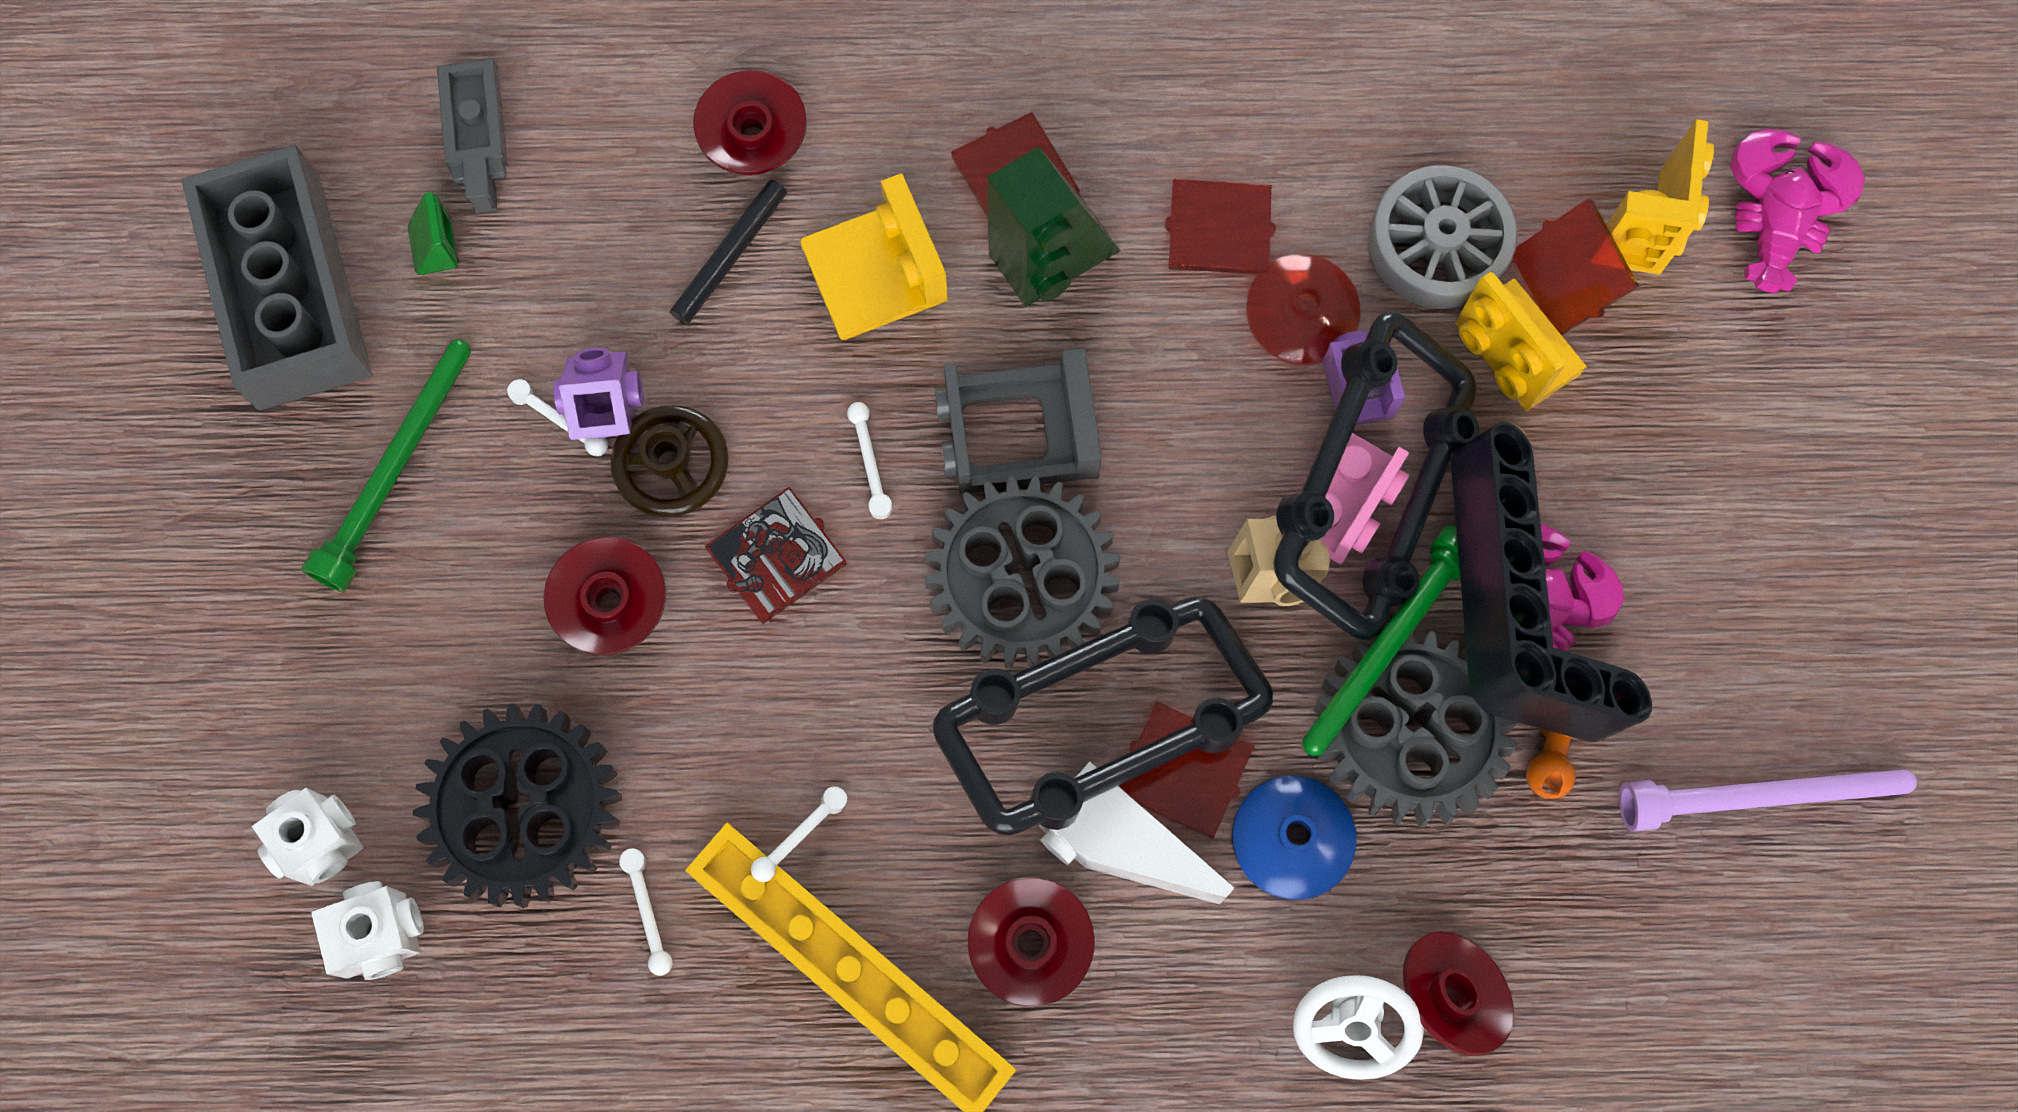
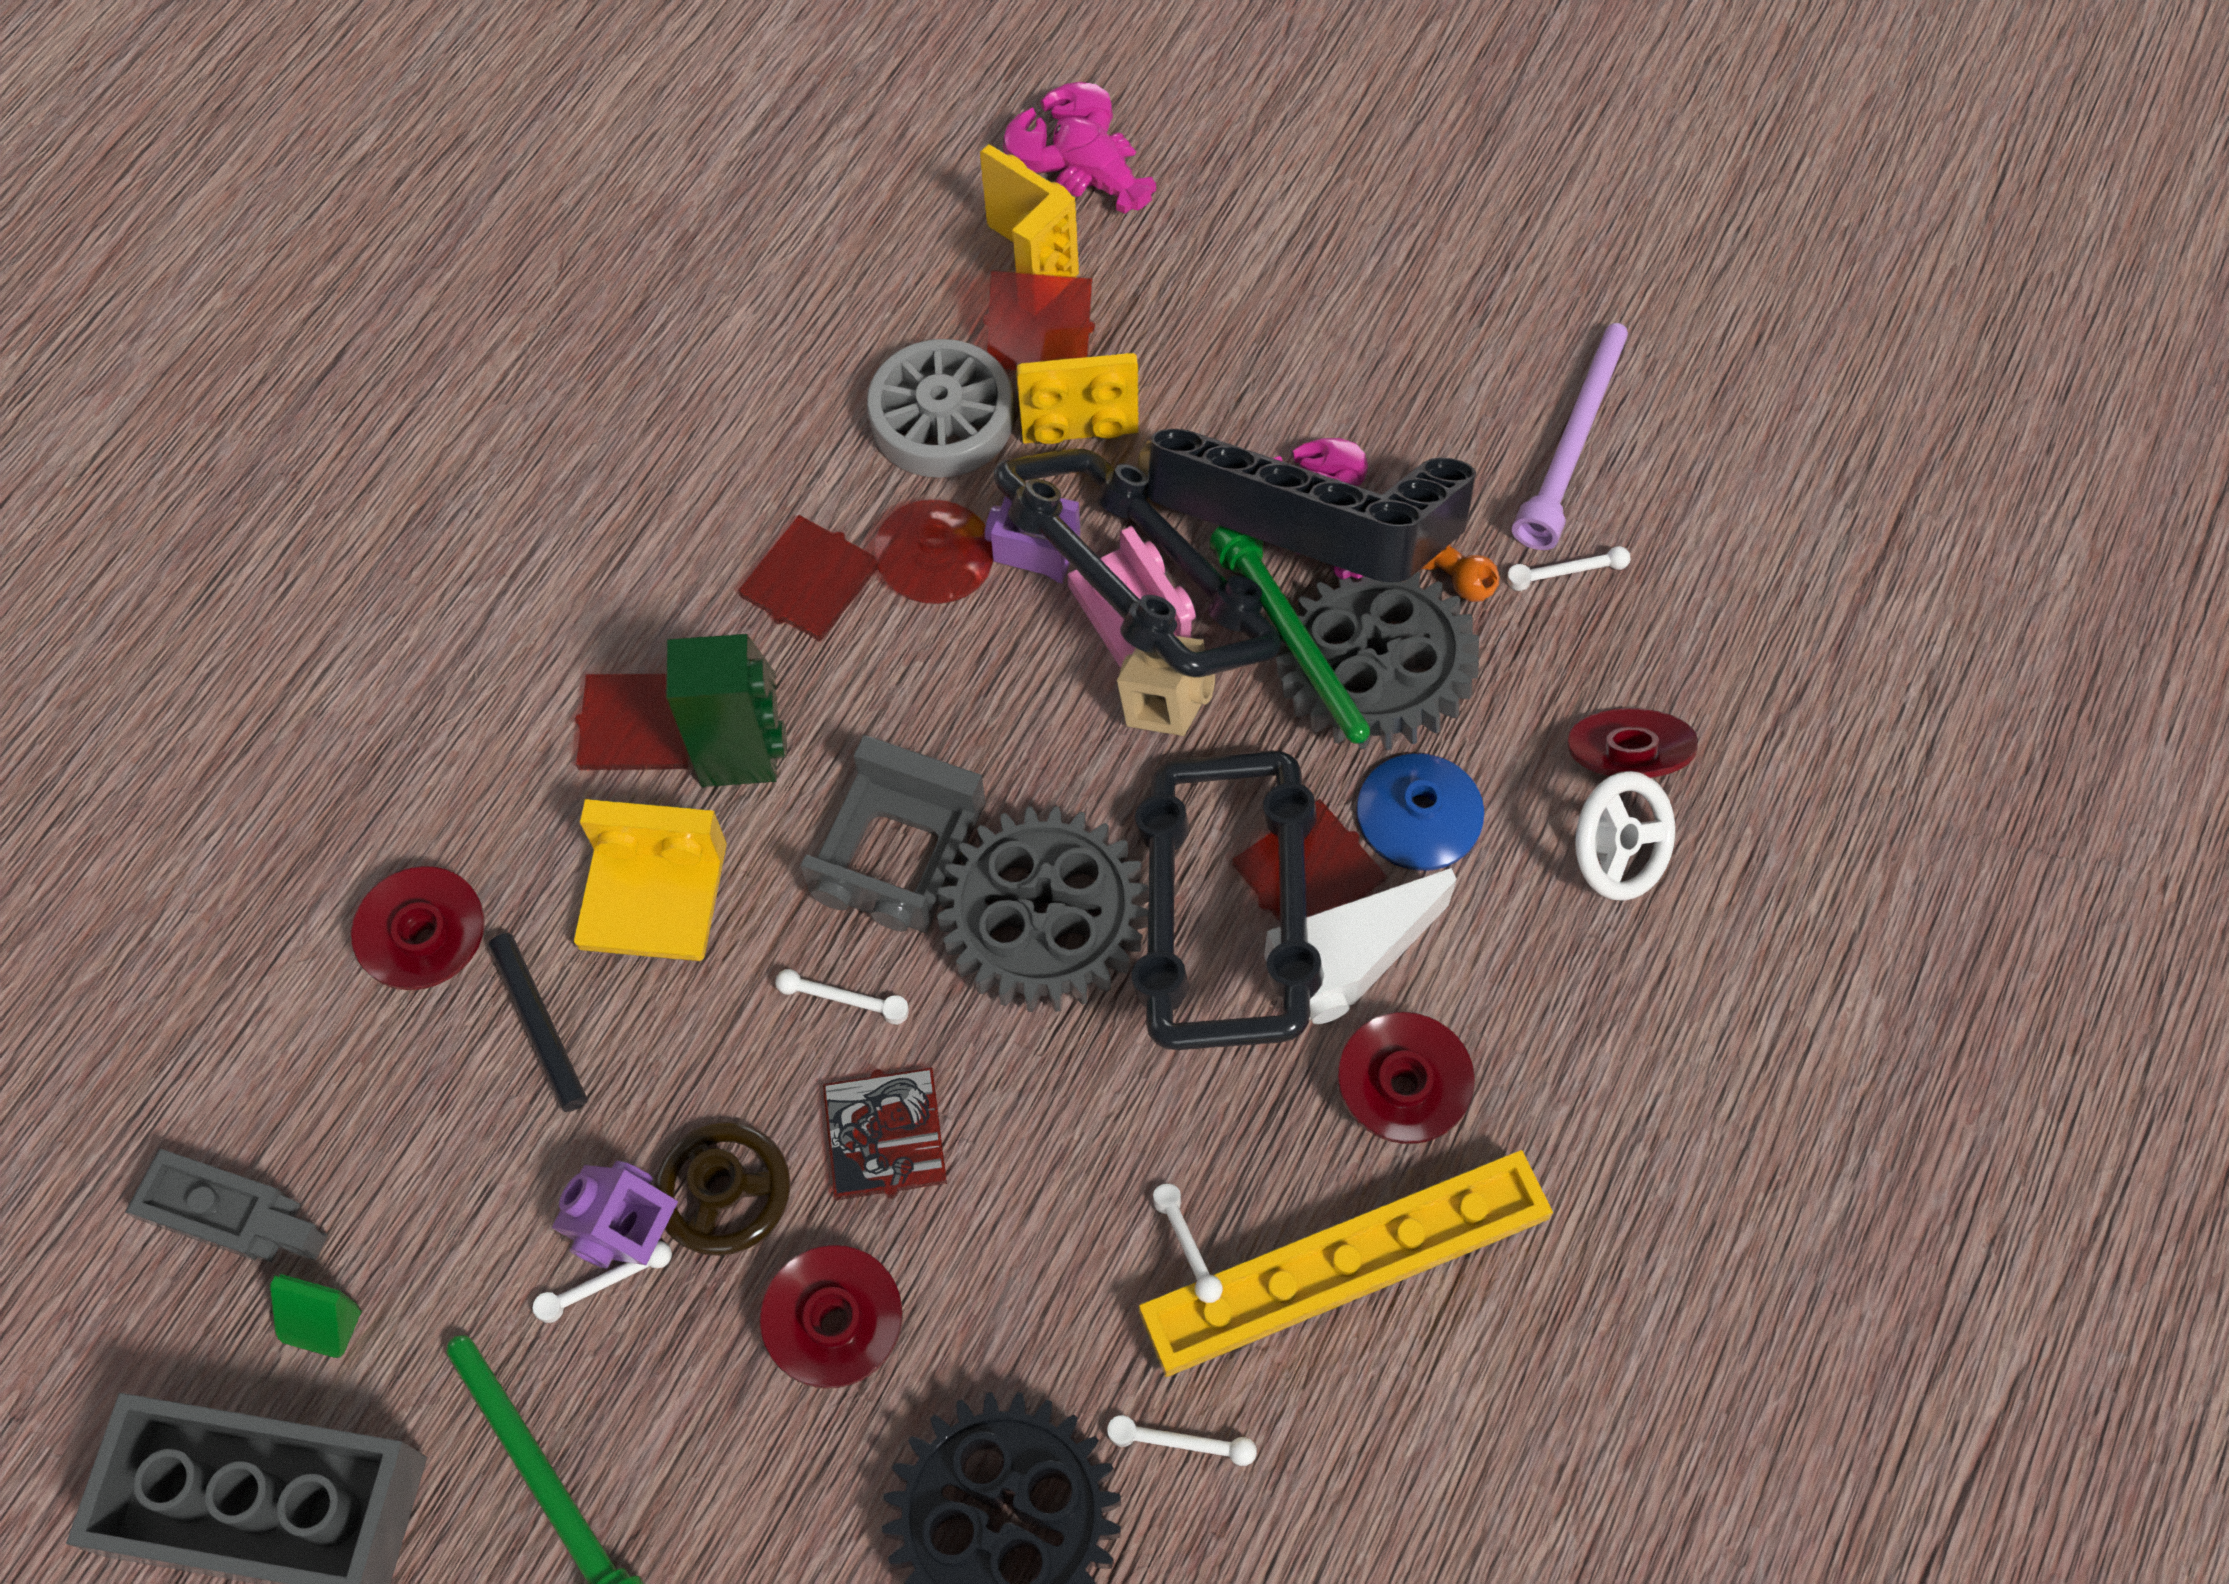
camera: 60 degrees left, 10 degrees down
(1581, 815) = (1520, 575): none -> white hinge

